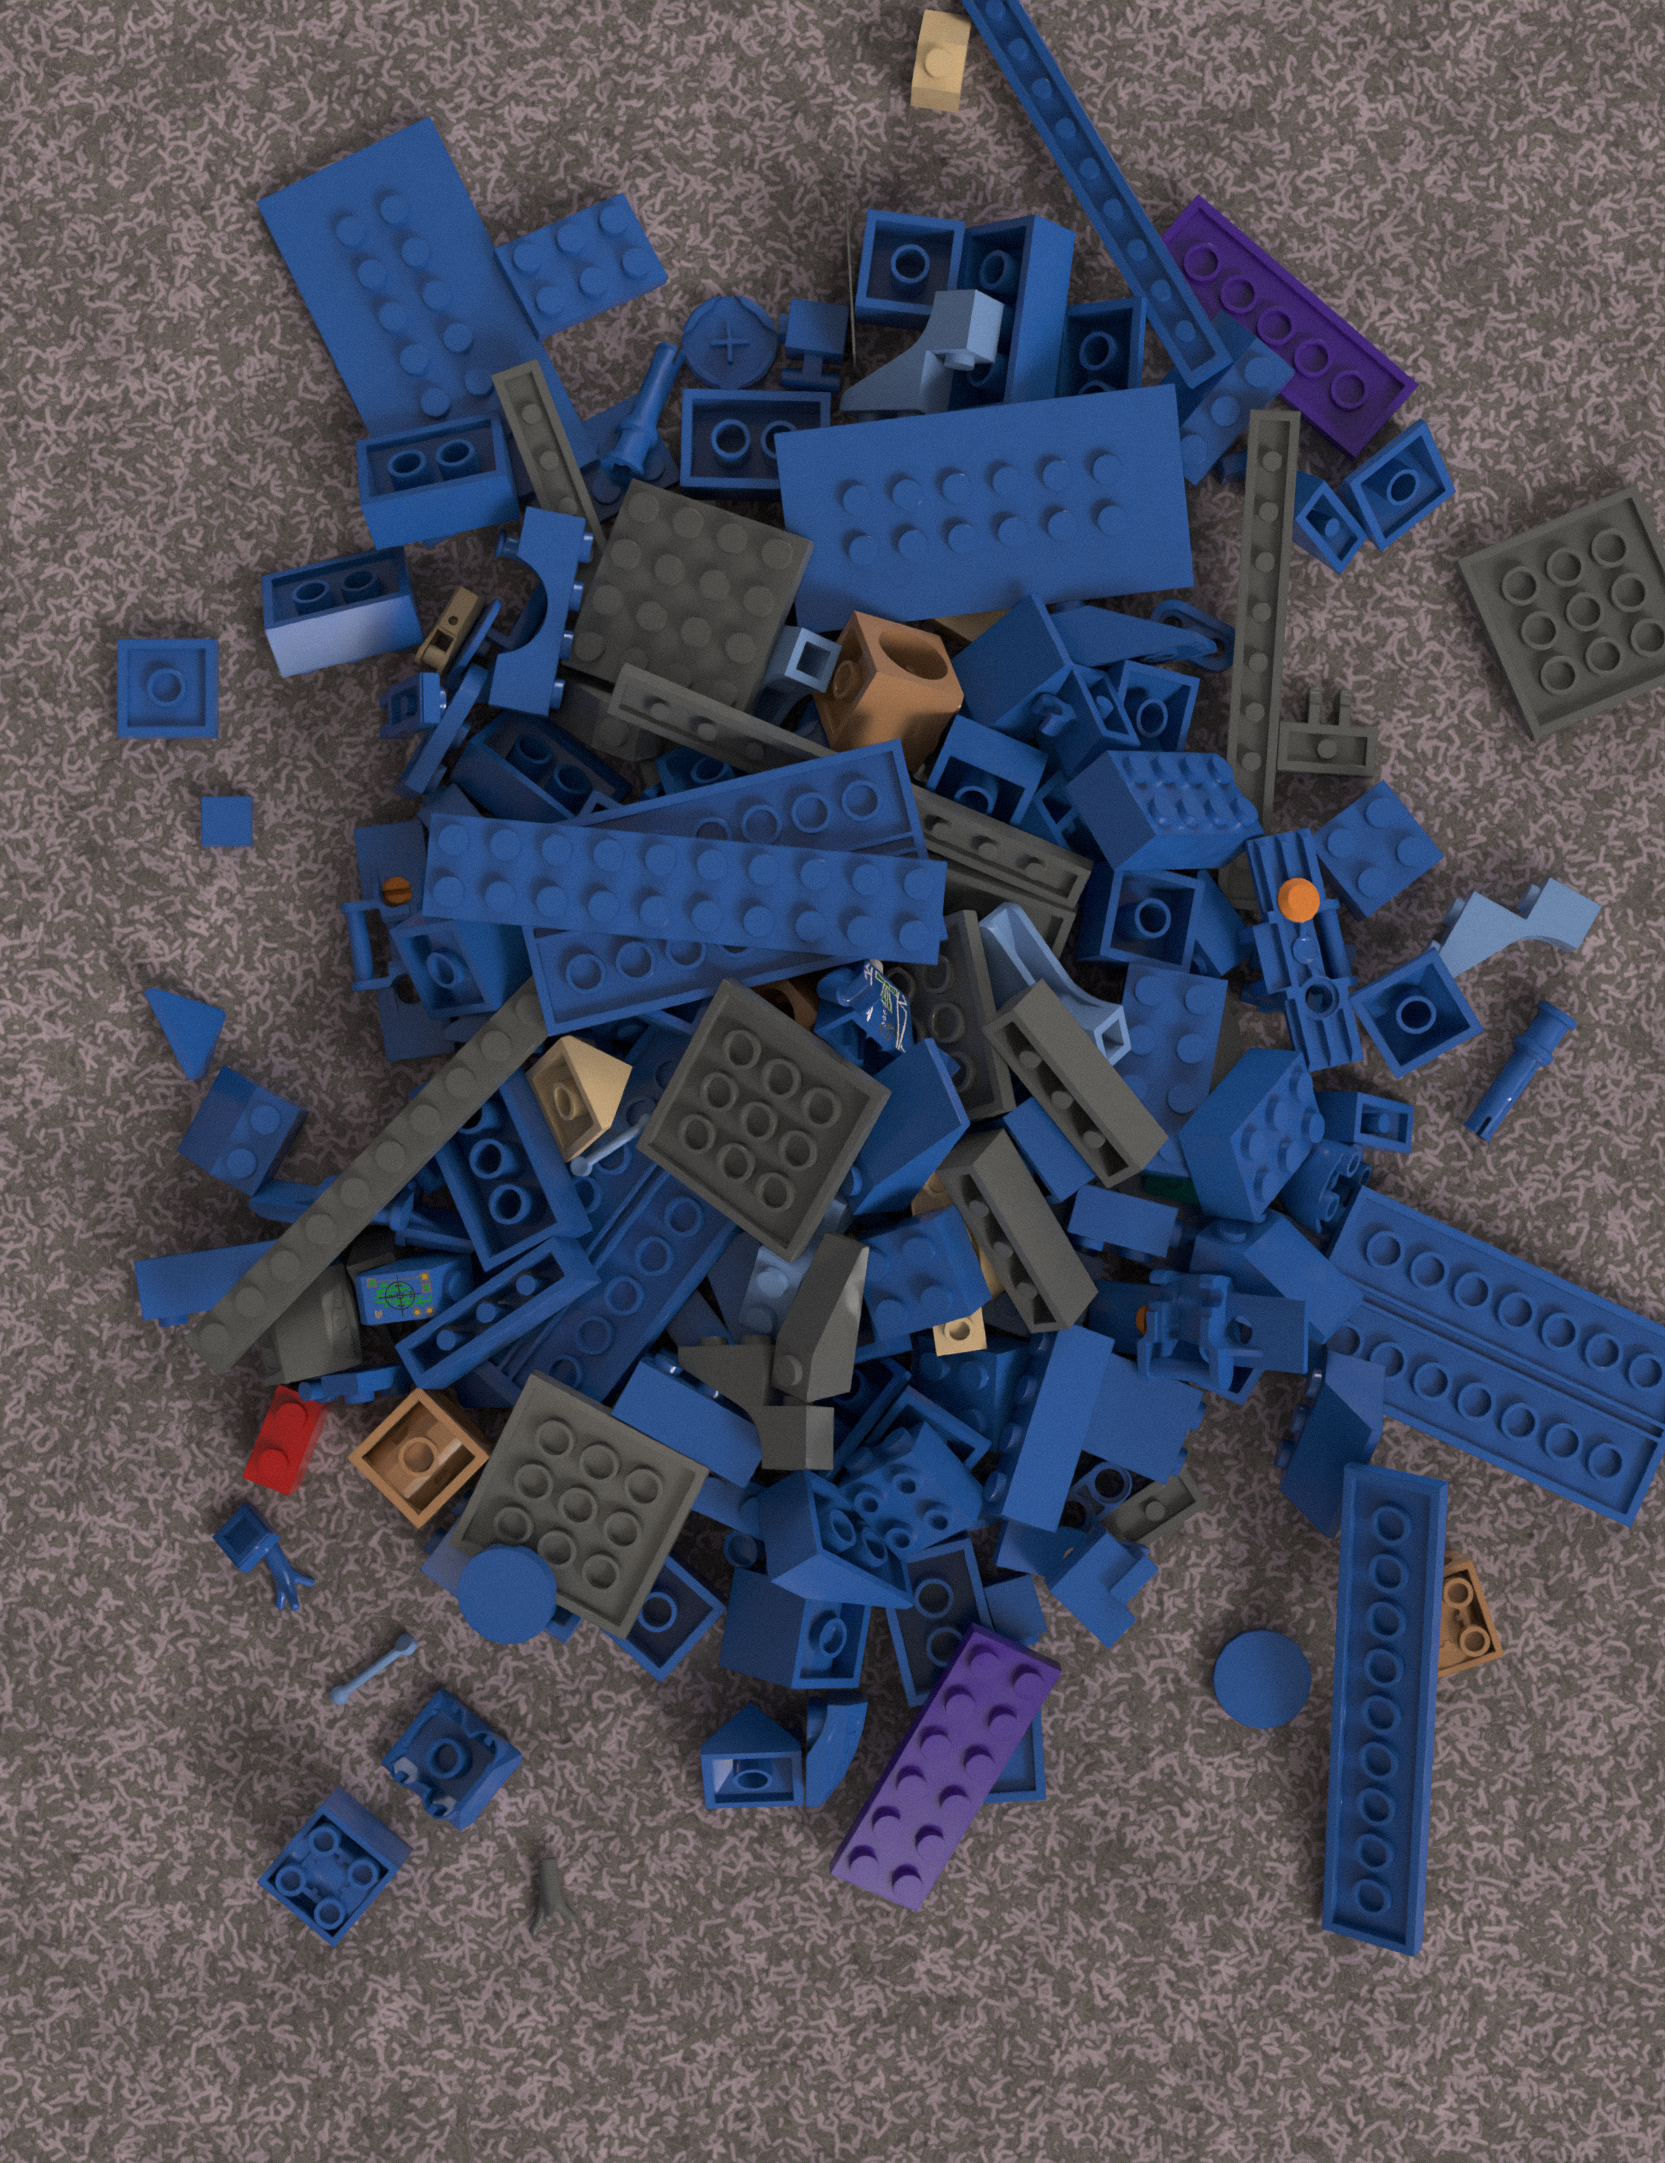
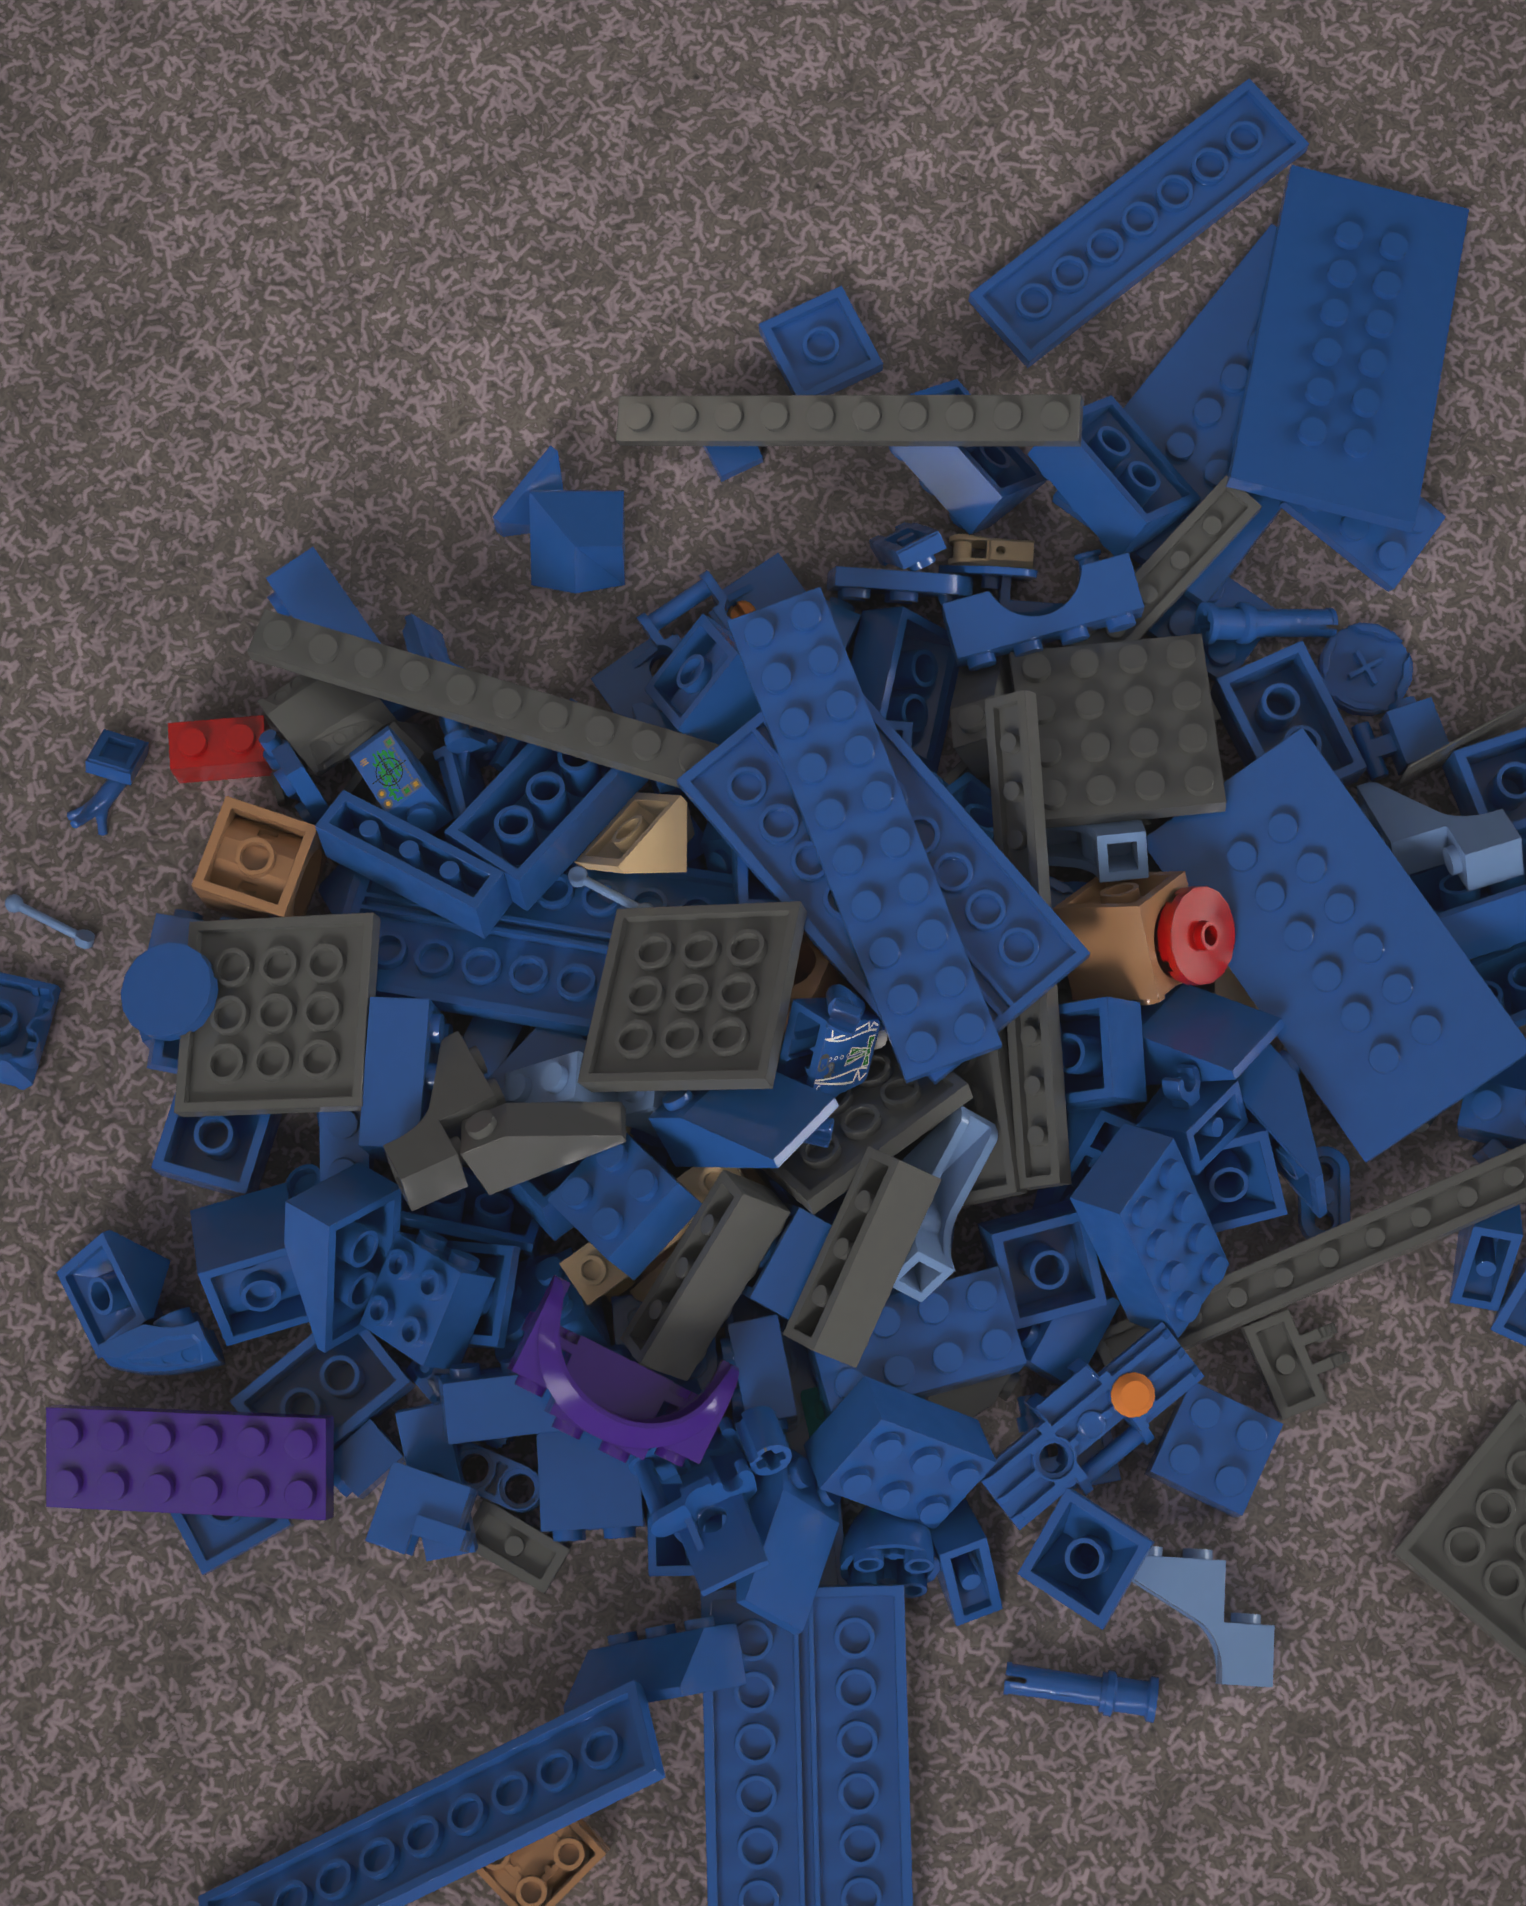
camera: 60 degrees right, 10 degrees down
(192, 326) = (1138, 223): none -> blue plate
(242, 1132) = (470, 588): blue slope -> none
(248, 1010) = (577, 539): none -> blue slope
(262, 698) = (851, 420): none -> dark grey plate
(419, 195) = (1349, 349): none -> blue plate
(919, 631) = (1196, 935): none -> red plate
(1090, 1367) = (612, 1394): none -> dark purple piece
(1190, 1251) = (763, 1440): none -> blue piece
(1261, 1678) = (405, 1724): blue tile -> none

